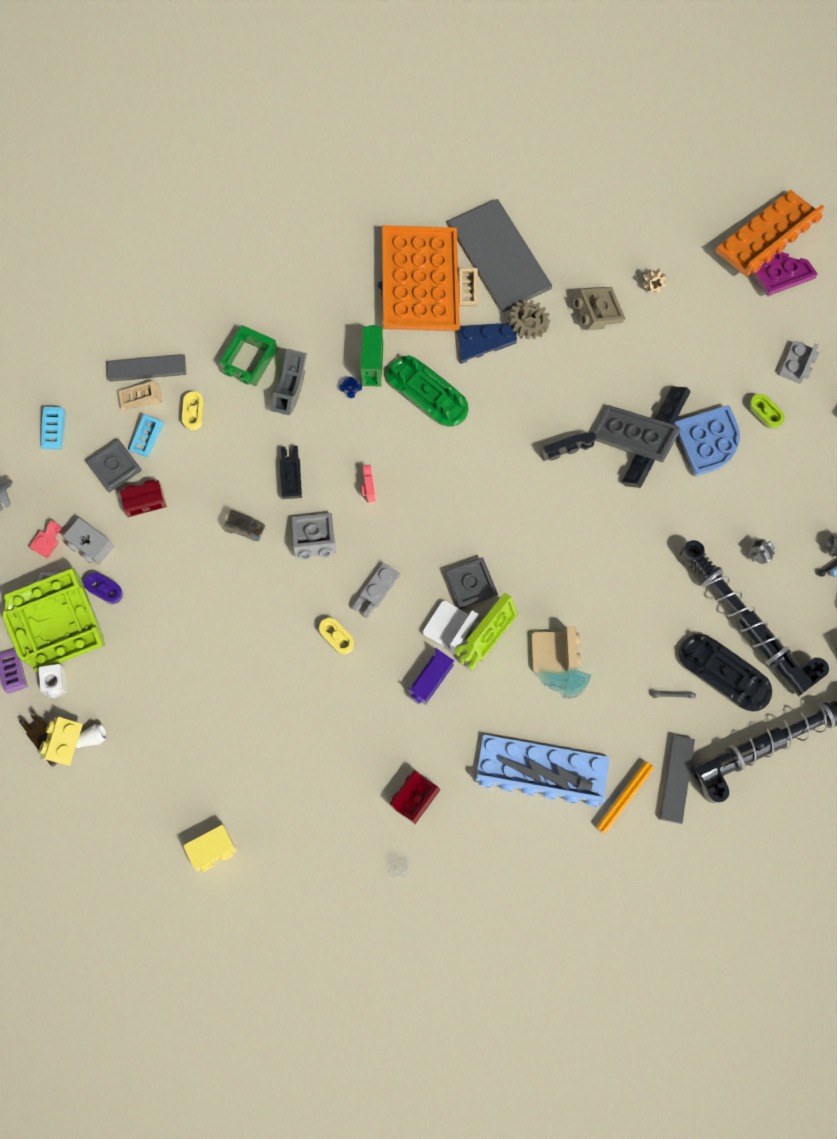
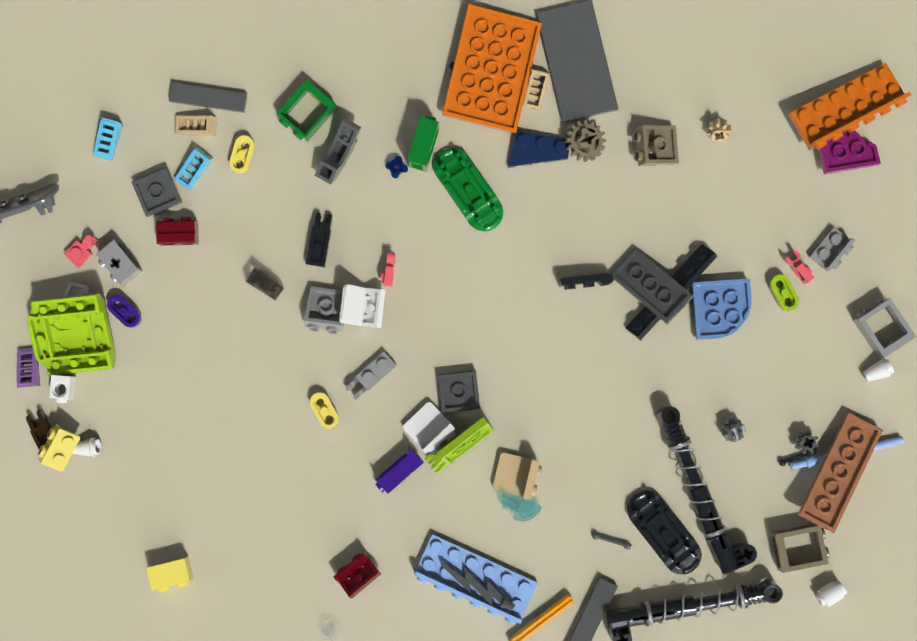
camera: 15 degrees right, 15 degrees up
(350, 523) = (362, 306): none -> white bracket
(775, 386) = (802, 271): none -> coral plate

